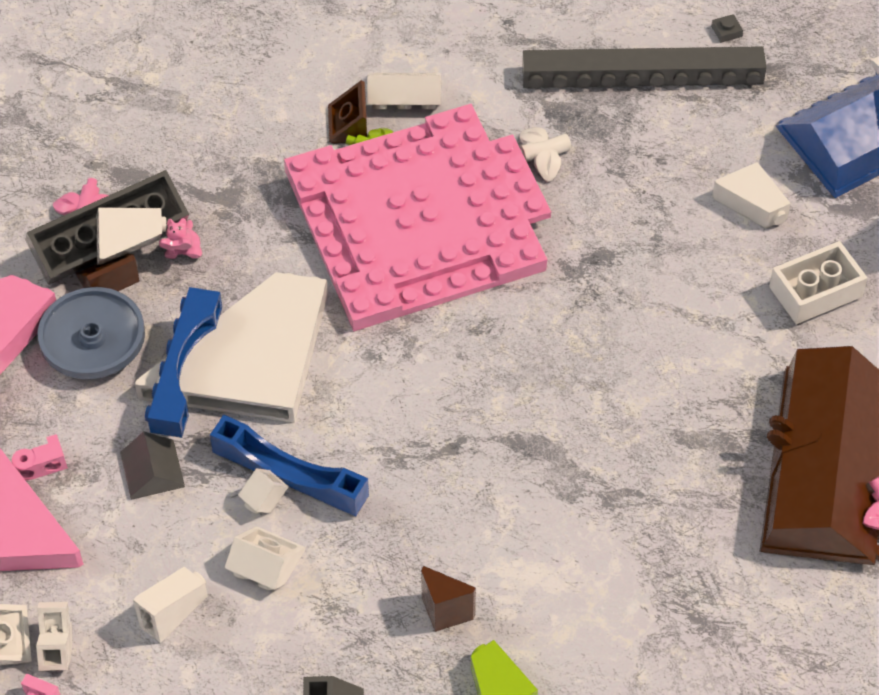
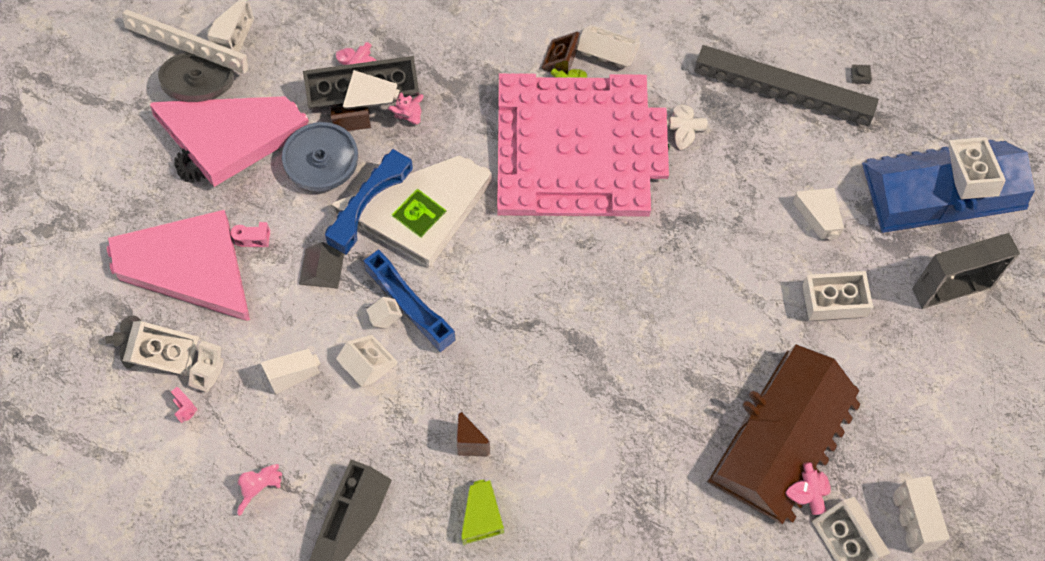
camera: 20 degrees right, 10 degrees up
(255, 356) = (419, 213): none -> clear neon green piece

